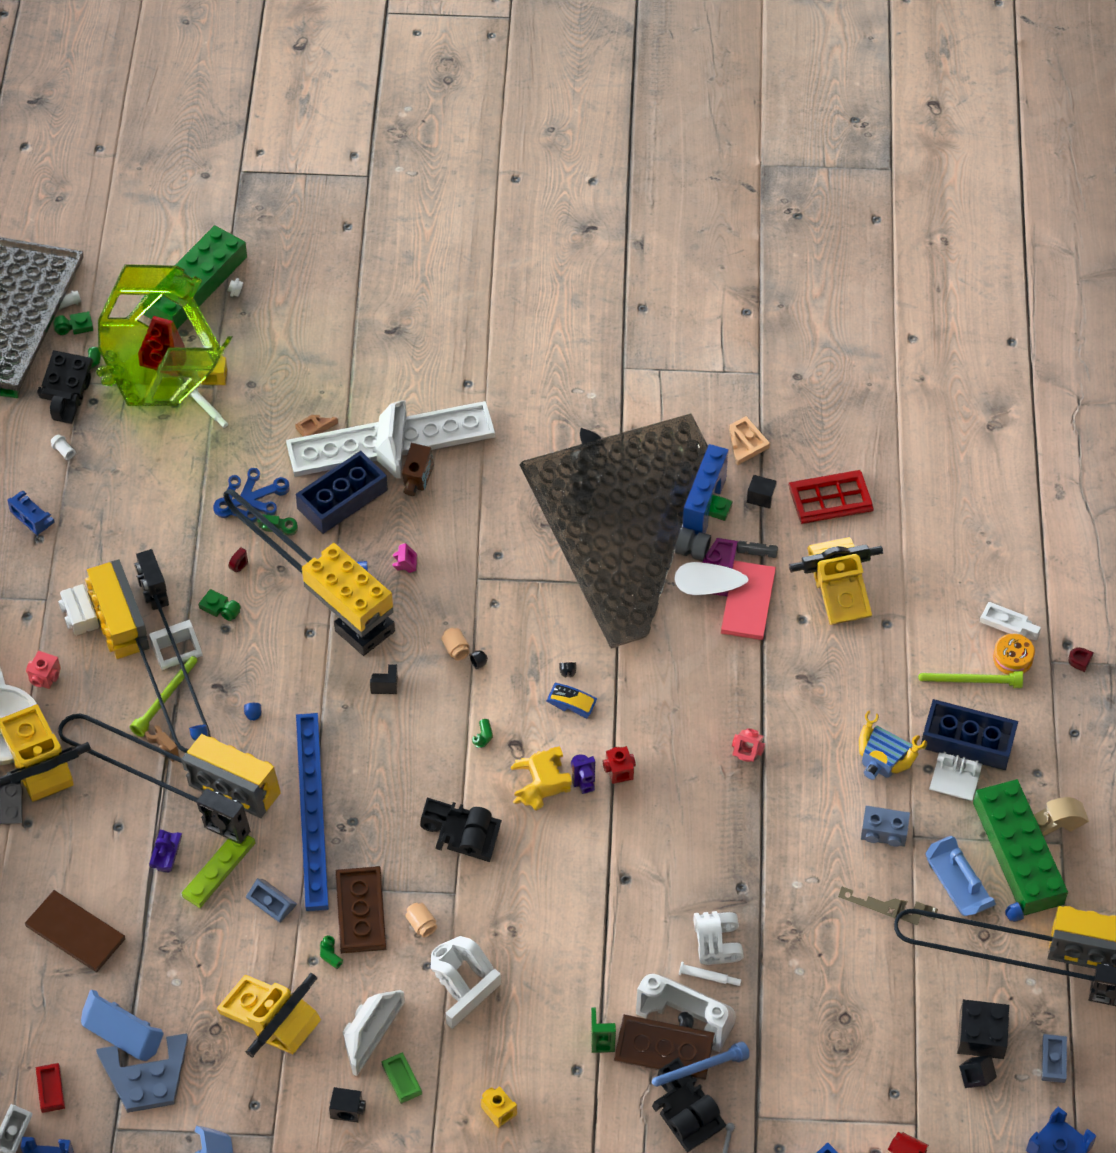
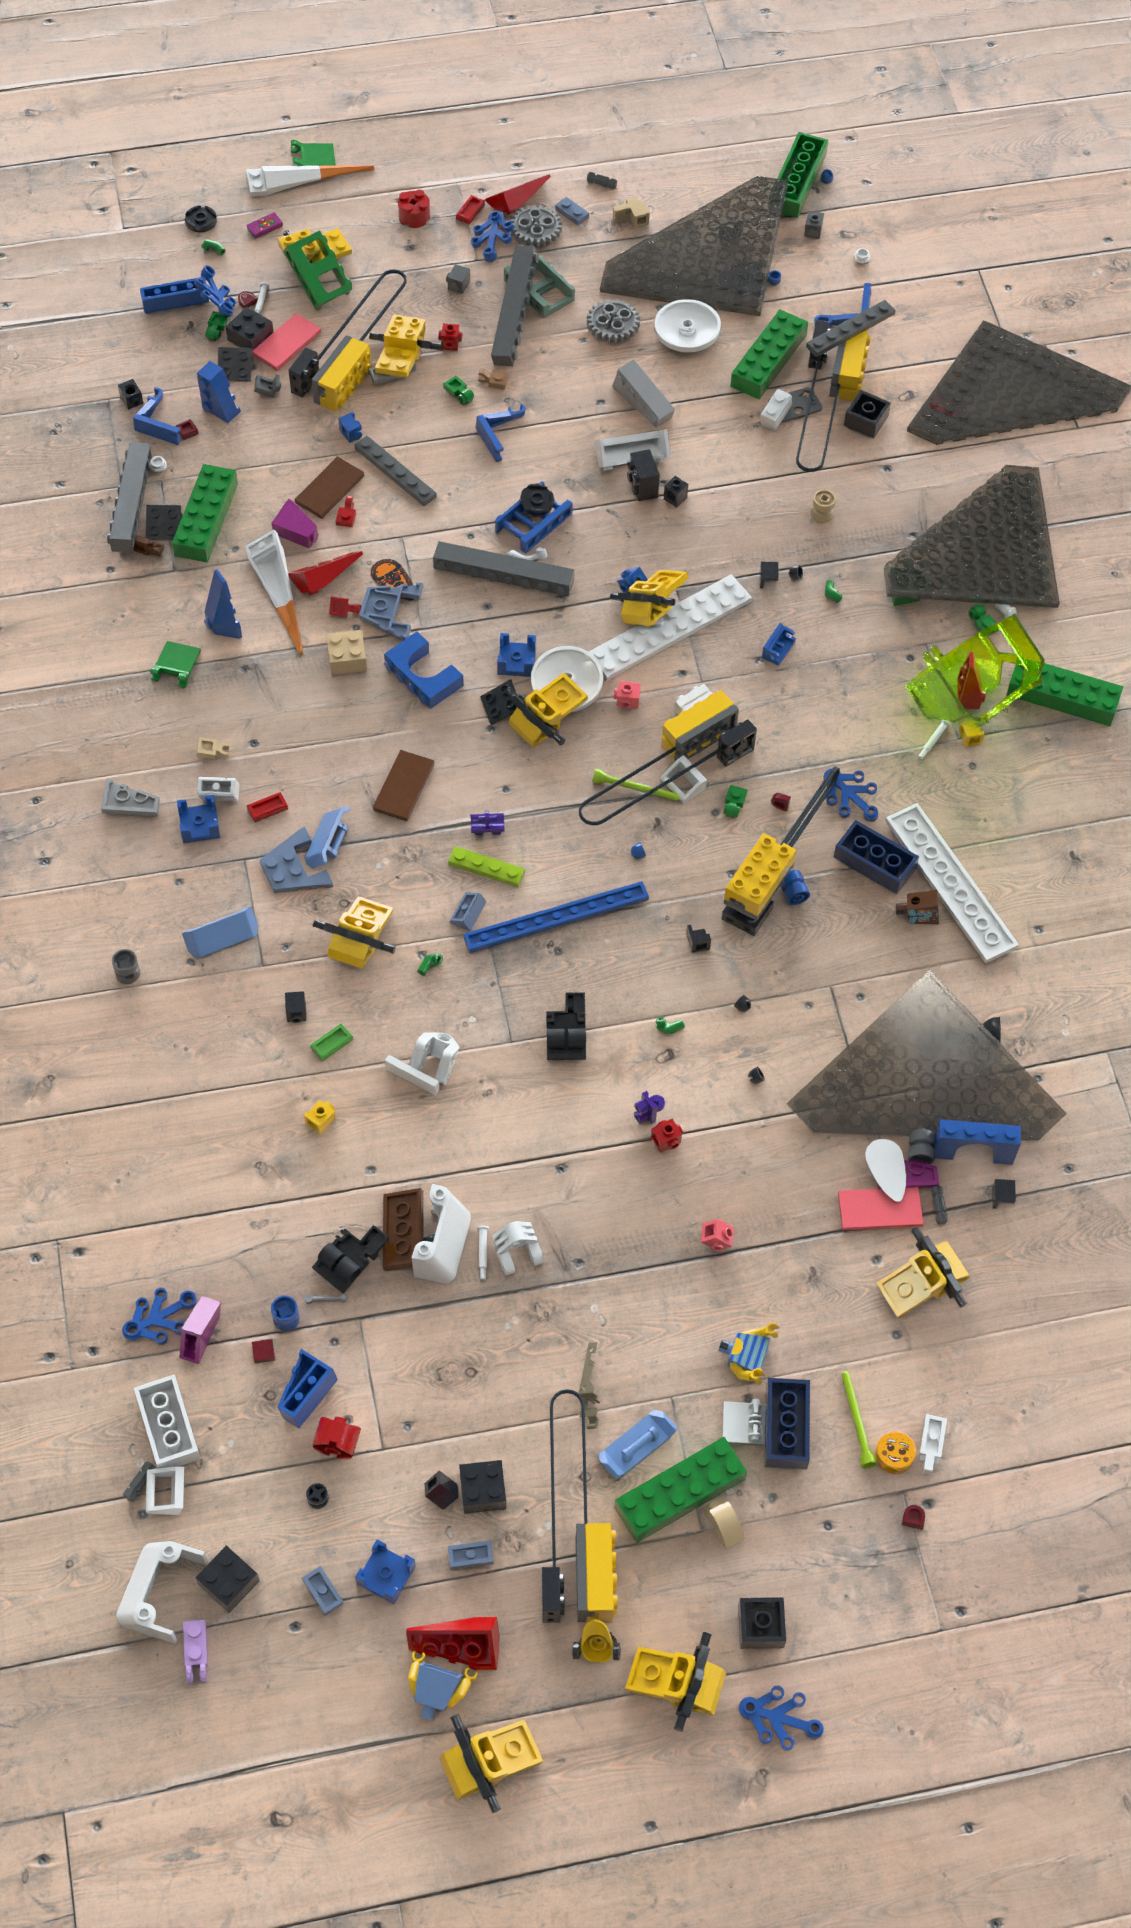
camera: 75 degrees right, 5 degrees up
(59, 442) = (852, 648): white pin -> none
(64, 384) = (916, 629): black plate -> none
(94, 353) = (949, 644): green arm -> none
(163, 740) = (589, 792): medium nougat plate -> none
(196, 731) = (594, 811): blue hinge -> none
(226, 776) = (564, 839): piece -> none
(235, 287) = (1068, 724): white plate -> none
(280, 523) = (829, 827): green plate -> none
(315, 425) = (945, 822): nougat tile -> none
(360, 909) = (476, 976): reddish brown tile -> none
(369, 1026) = (365, 1006): white wedge -> none
(391, 437) = (947, 877): white wedge -> none
(406, 558) = (827, 924): dark pink tile -> none
(421, 919) = (475, 1020): light nougat brick -> none
(455, 643) = (751, 982): light nougat brick -> none
(545, 776) = (638, 1080): yellow animal -> none
(570, 698) = (724, 1085): slope -> none
(602, 1035) = (399, 1169): green panel -> none
(720, 507) = (975, 1162): green plate -> none
(737, 1052) = (410, 1286): medium blue piece -> none
(746, 440) = (1059, 1171): light nougat wing -> none
(832, 512) = (1009, 1269): red piece -> none
(885, 826) = (669, 1368): sand blue brick -> none
(1014, 912) = (610, 1496): blue hinge -> none

